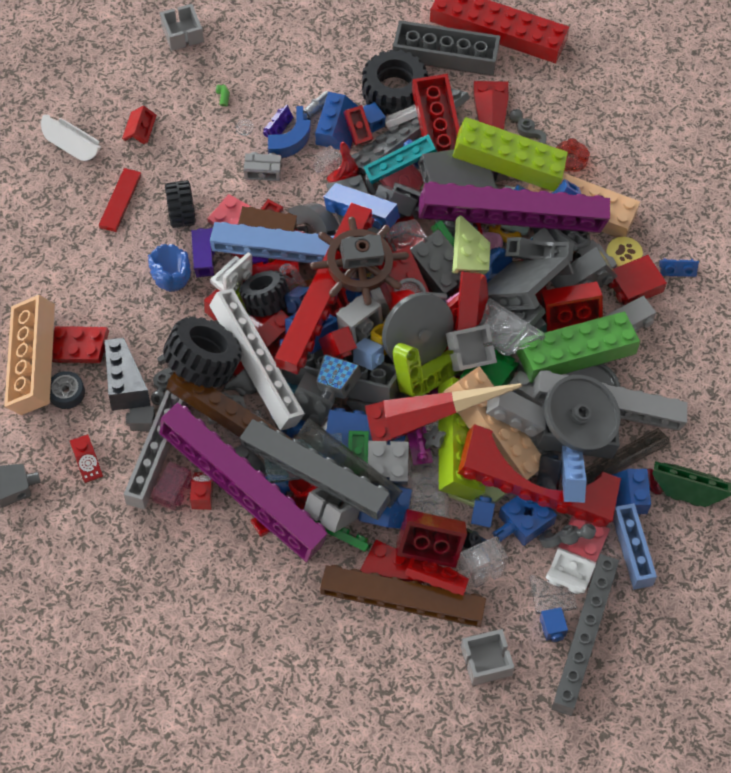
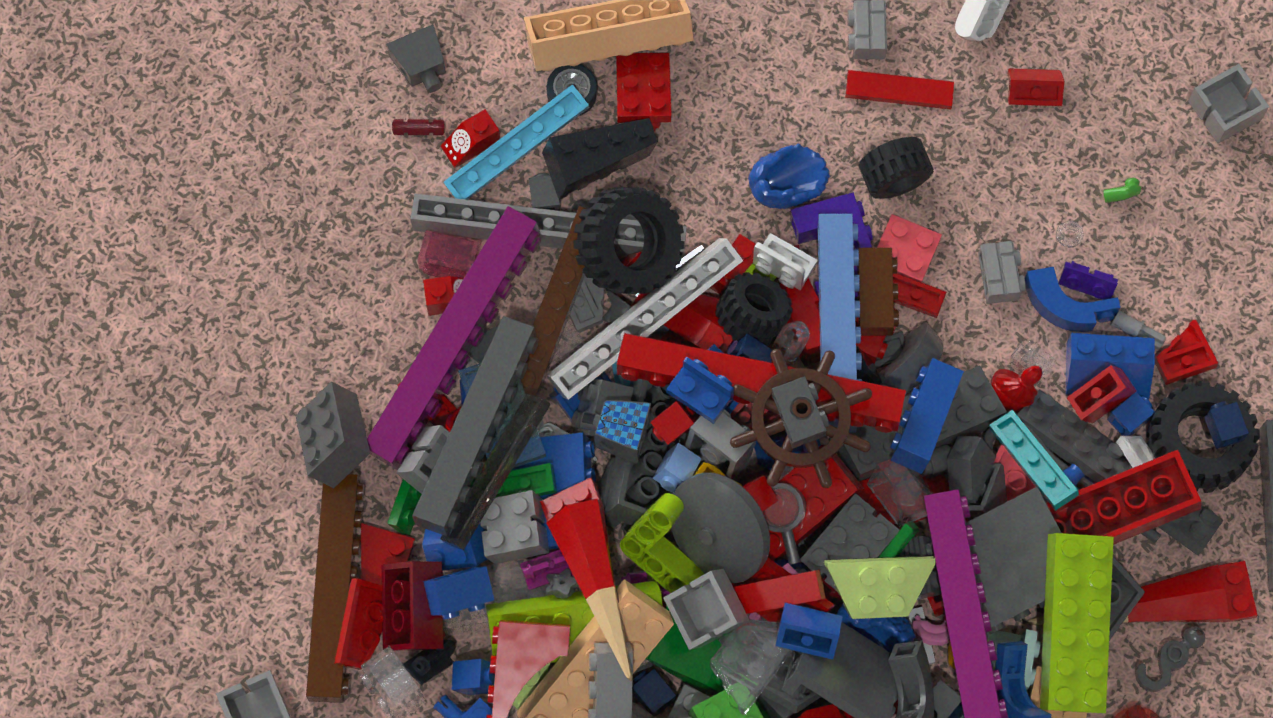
camera: 80 degrees right, 10 degrees up
(65, 494) = (418, 127): none -> dark red axle
(73, 207) = (869, 29): none -> light grey brick
(100, 428) = (517, 144): none -> medium azure plate
(296, 572) = (332, 434): none -> dark grey brick
(327, 314) = (701, 389): none -> blue bracket
(338, 82) = (1186, 355): none -> red wing
(396, 60) = (1226, 424): none -> dark blue brick
(430, 499) = (459, 591): none -> blue brick
(498, 287) = (809, 631): none -> blue brick

